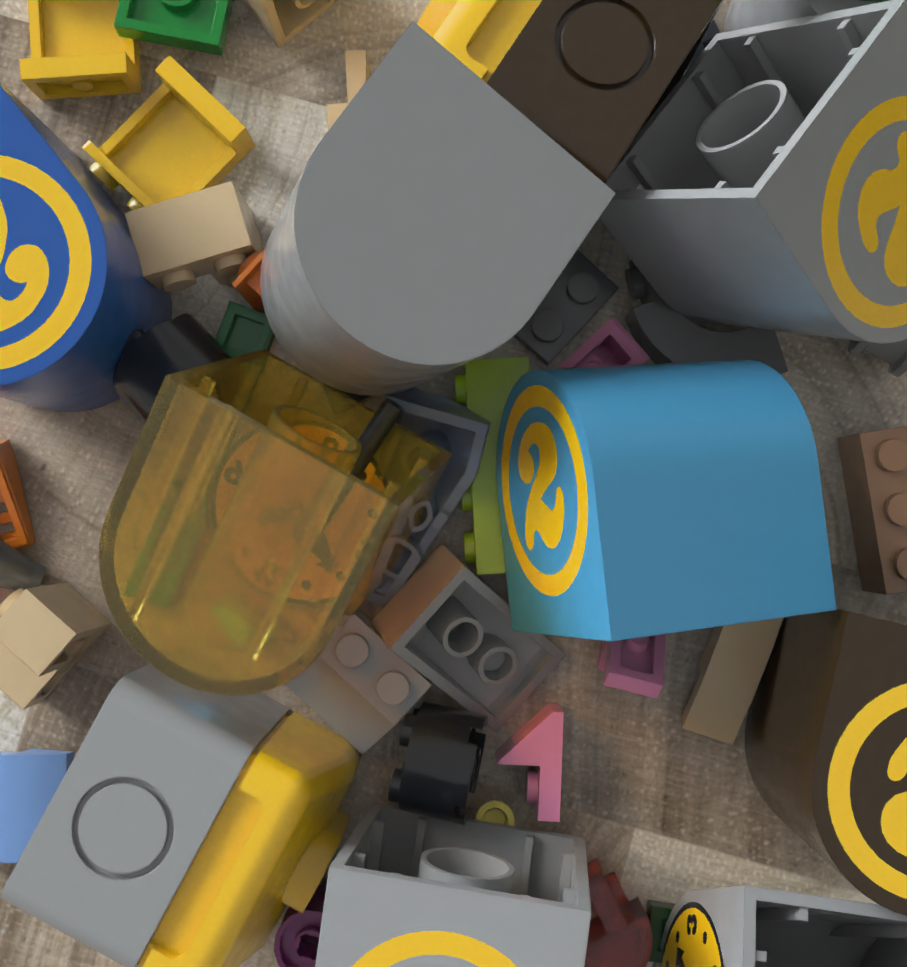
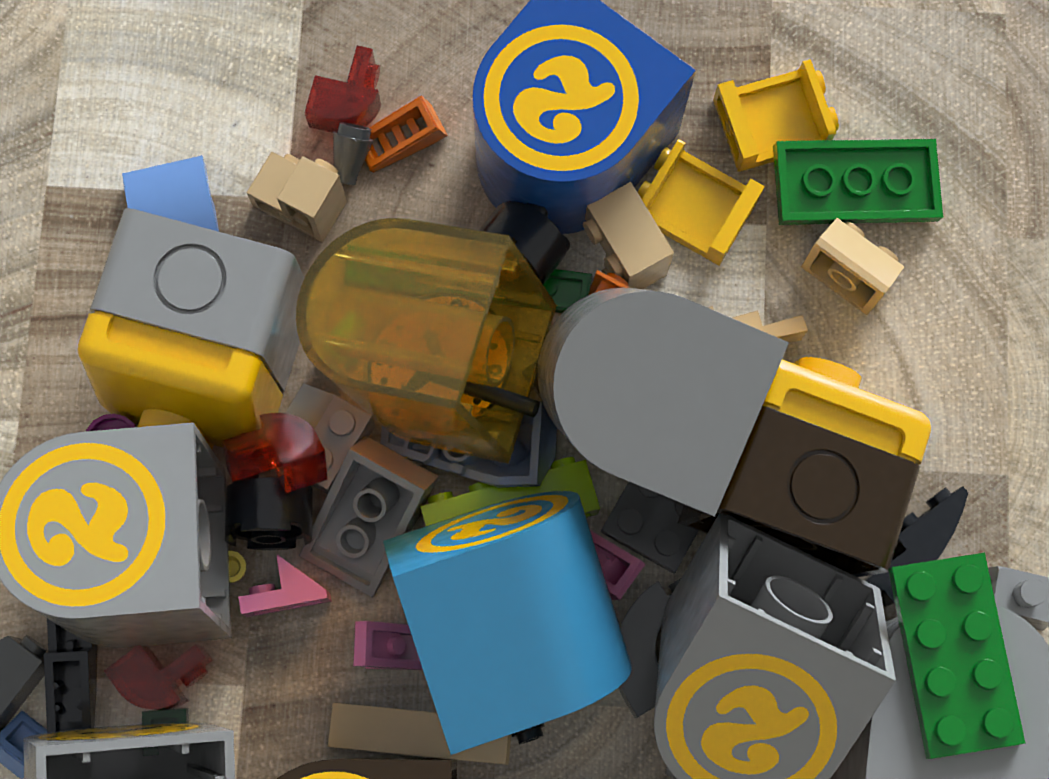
camera: 70 degrees right, 10 degrees down
(367, 732) = (282, 445): none -> clear red brick

